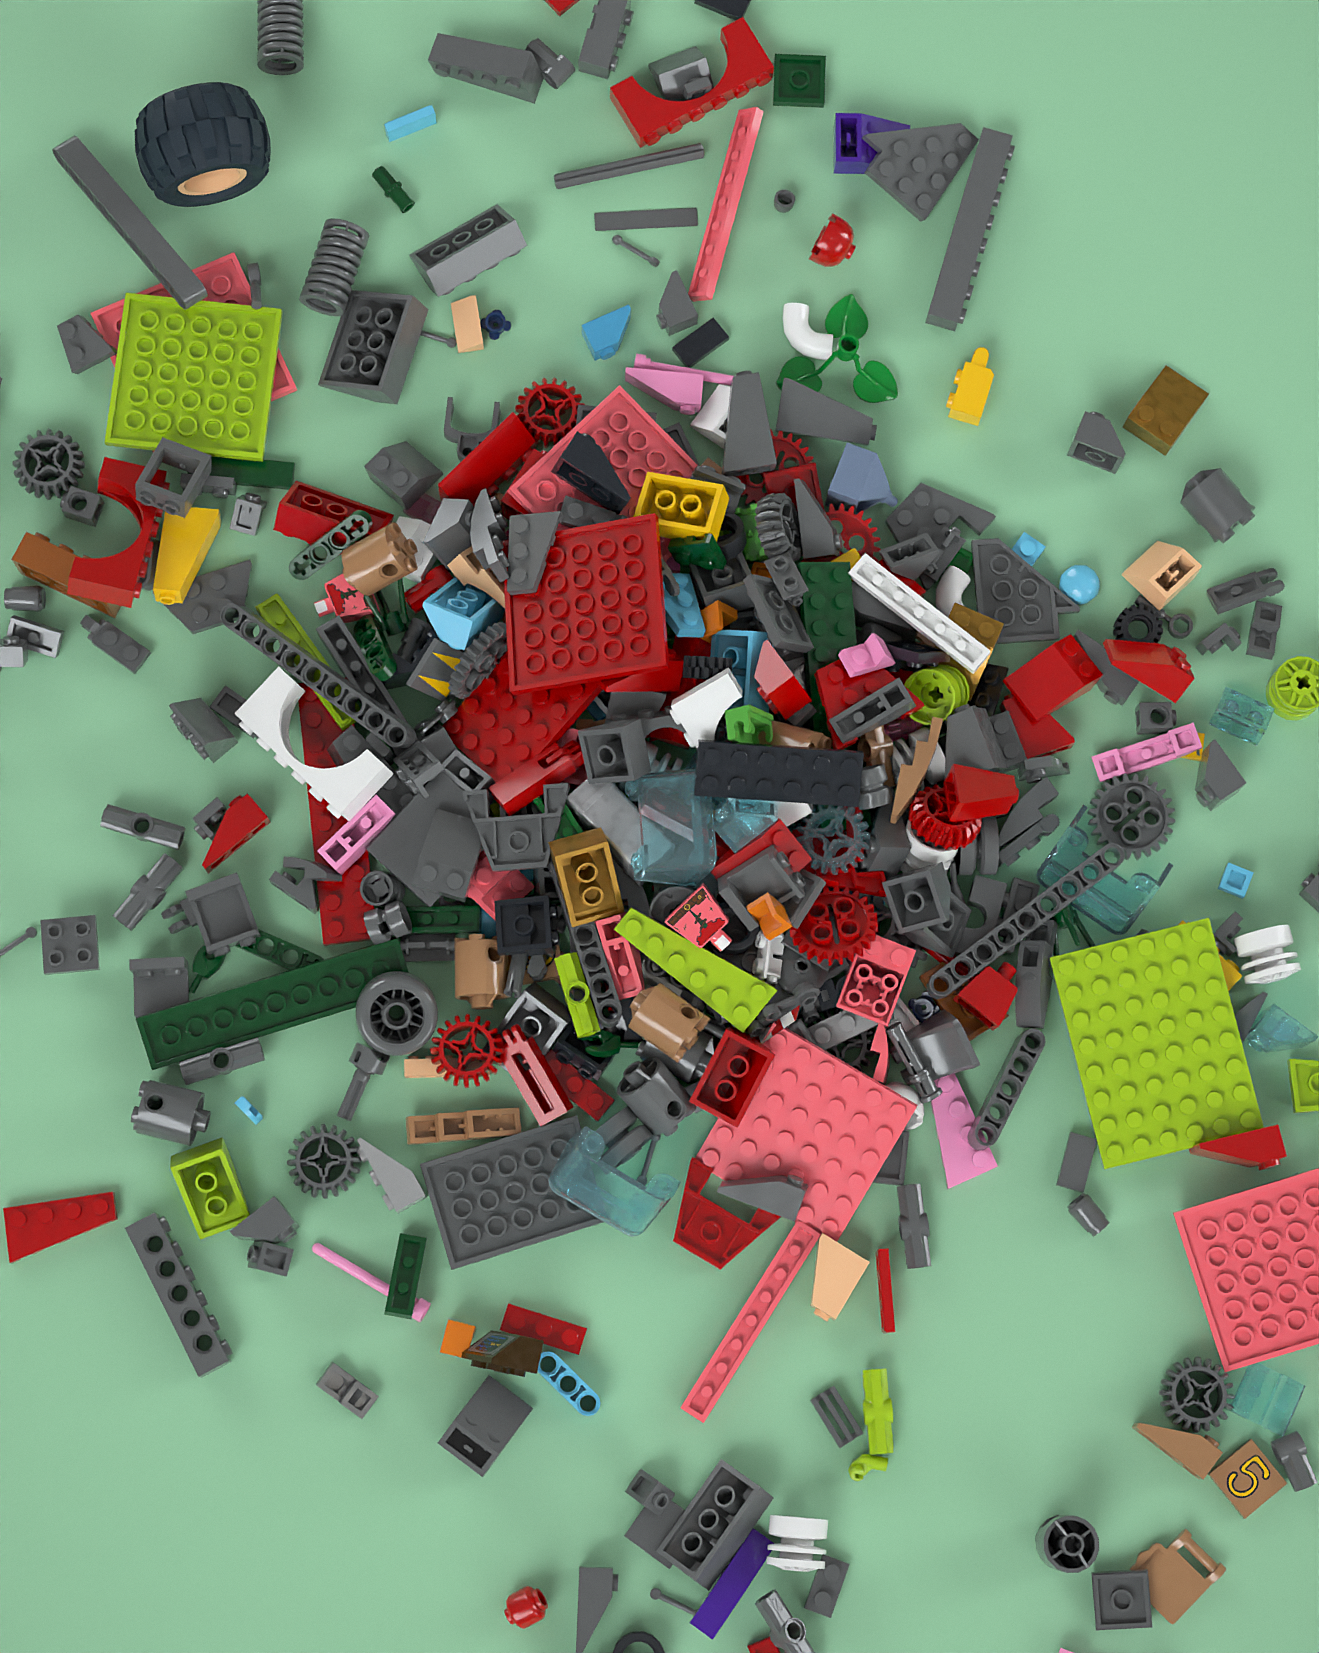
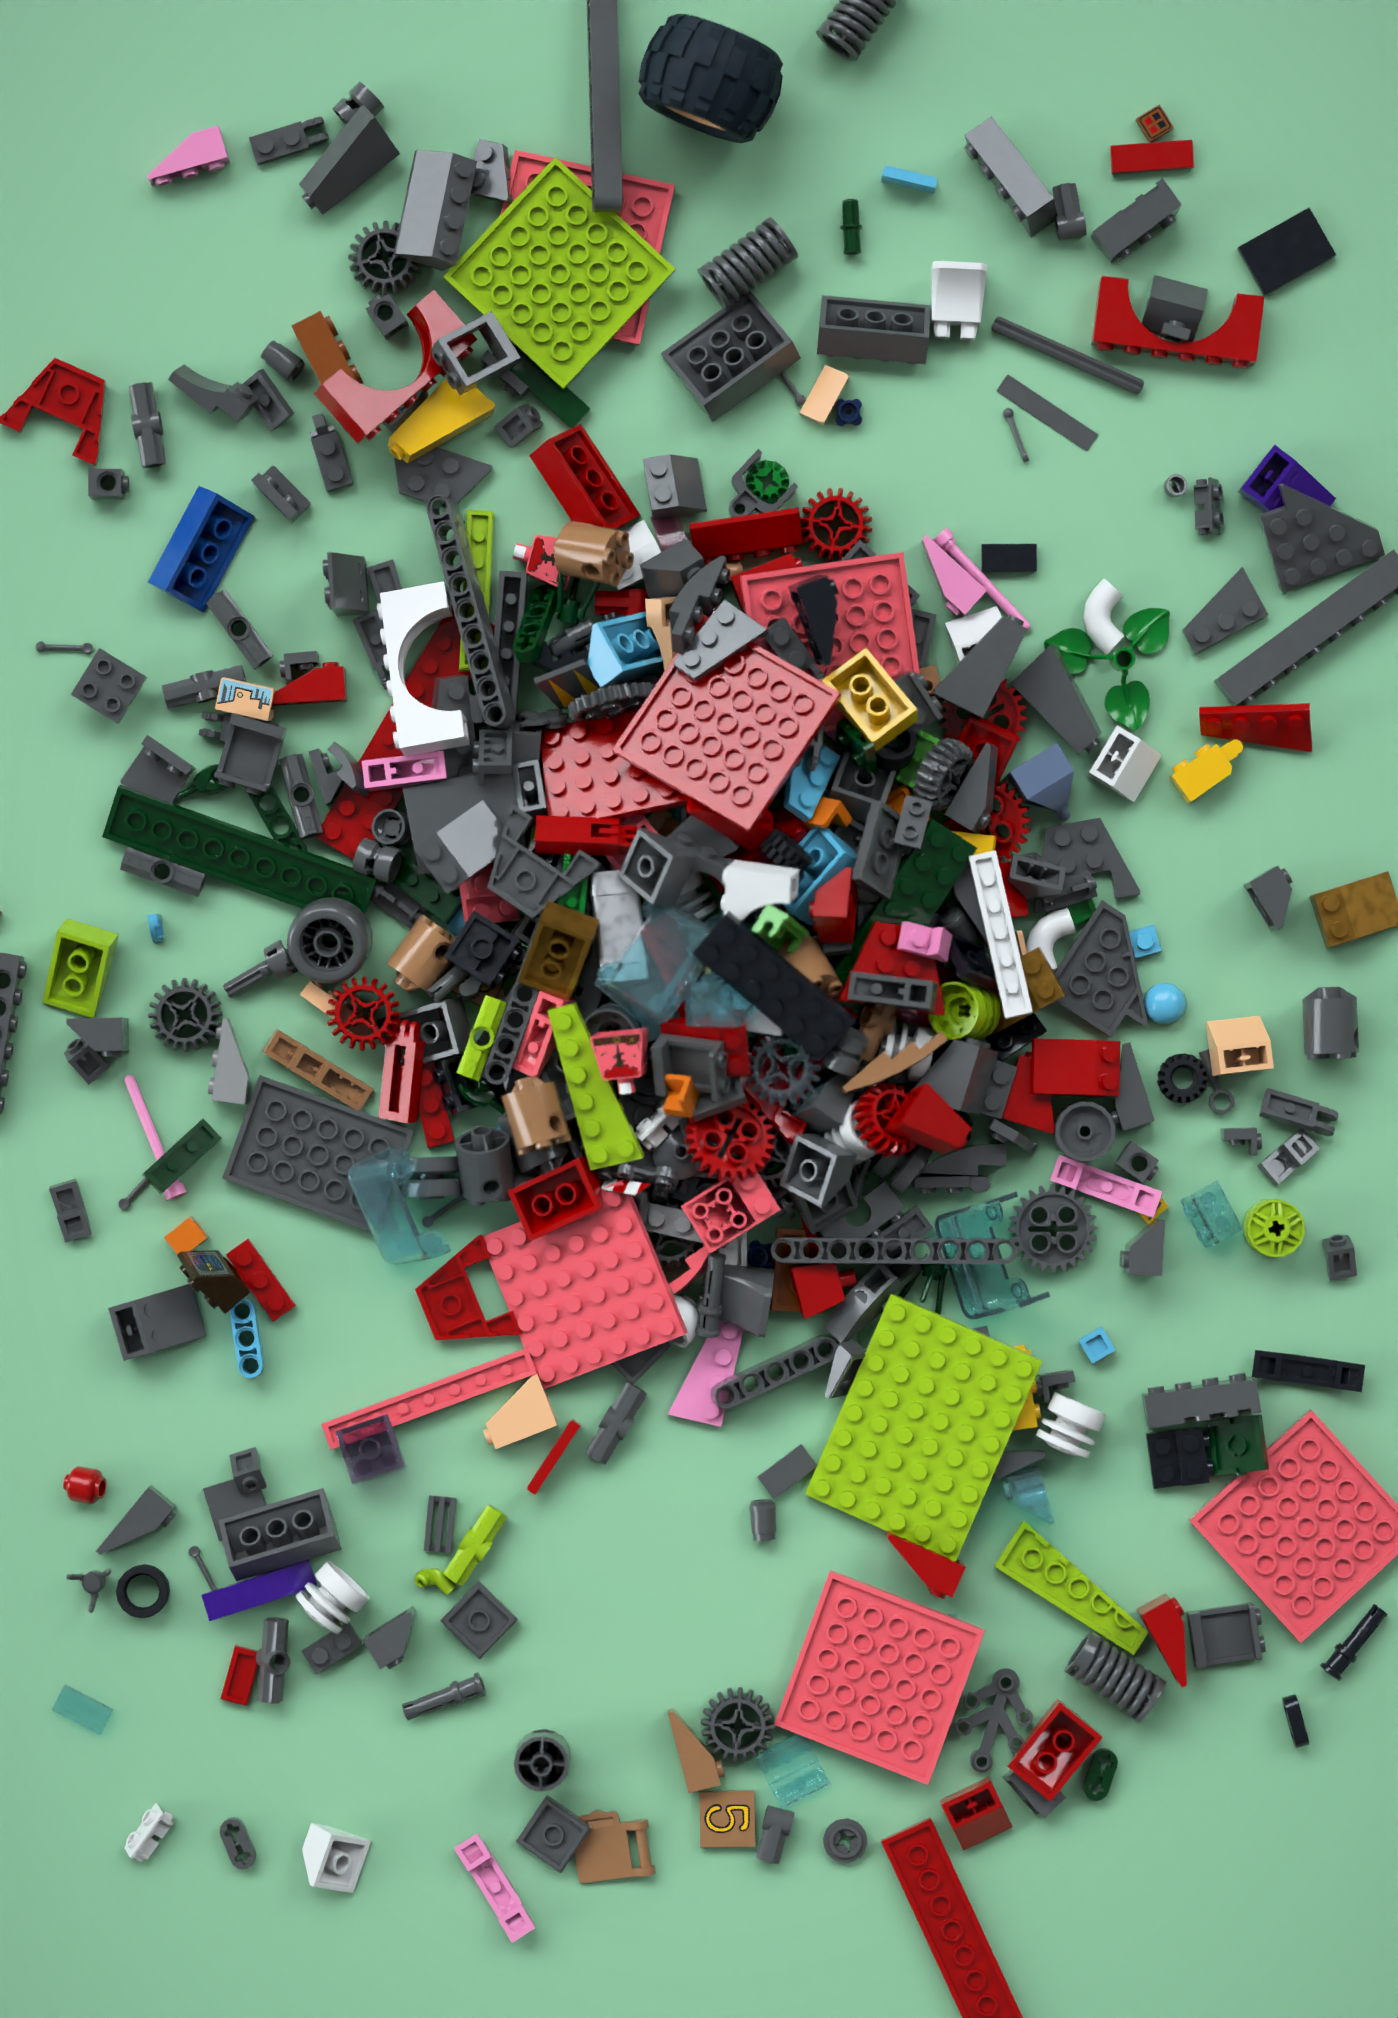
camera: 40 degrees right, 10 degrees up
(61, 396) = (435, 208): none -> slope
(66, 787) = (201, 548): none -> blue slope
(98, 699) = (281, 493): none -> dark grey bracket
(178, 1112) = (93, 894): dark grey cylinder -> none
(187, 875) = (245, 699): none -> panel
(255, 283) = (674, 223): dark grey piece -> none
(255, 757) = (369, 628): none -> dark grey hinge
(276, 910) = (305, 812): none -> dark grey piece
(332, 547) = (564, 503): beam -> none
(387, 1351) = (125, 1202): none -> dark grey hinge
(480, 410) = (762, 469): none -> green gear
(512, 179) = (957, 297): none -> white hips
(606, 333) = (935, 491): dark azure slope -> none
(676, 307) = (1010, 511): dark grey slope -> none
(725, 204) = (1122, 451): coral plate -> none
(736, 1396) = (371, 1449): none -> clear purple slope
(773, 1194) = (520, 1313): dark grey slope -> none
(799, 80) = (1271, 387): dark green plate -> none
(814, 190) = (1209, 496): none -> dark grey hinge
(833, 243) = (1186, 556): red cylinder -> none
(870, 1538) = (391, 1639): none -> dark grey slope
(895, 266) = (1226, 613): none -> dark grey wing
(907, 428) = (1124, 763): none -> white slope
(927, 1470) = (479, 1619): none -> dark grey plate
(955, 1544) = (456, 1693): none -> dark grey pin
(992, 321) = (1267, 725): none -> red wing
(1059, 1044) = (844, 1368): none -> dark grey slope
(1110, 715) = (1068, 1126): none -> dark grey wheel
(1153, 665) = (1163, 1118): red slope -> none

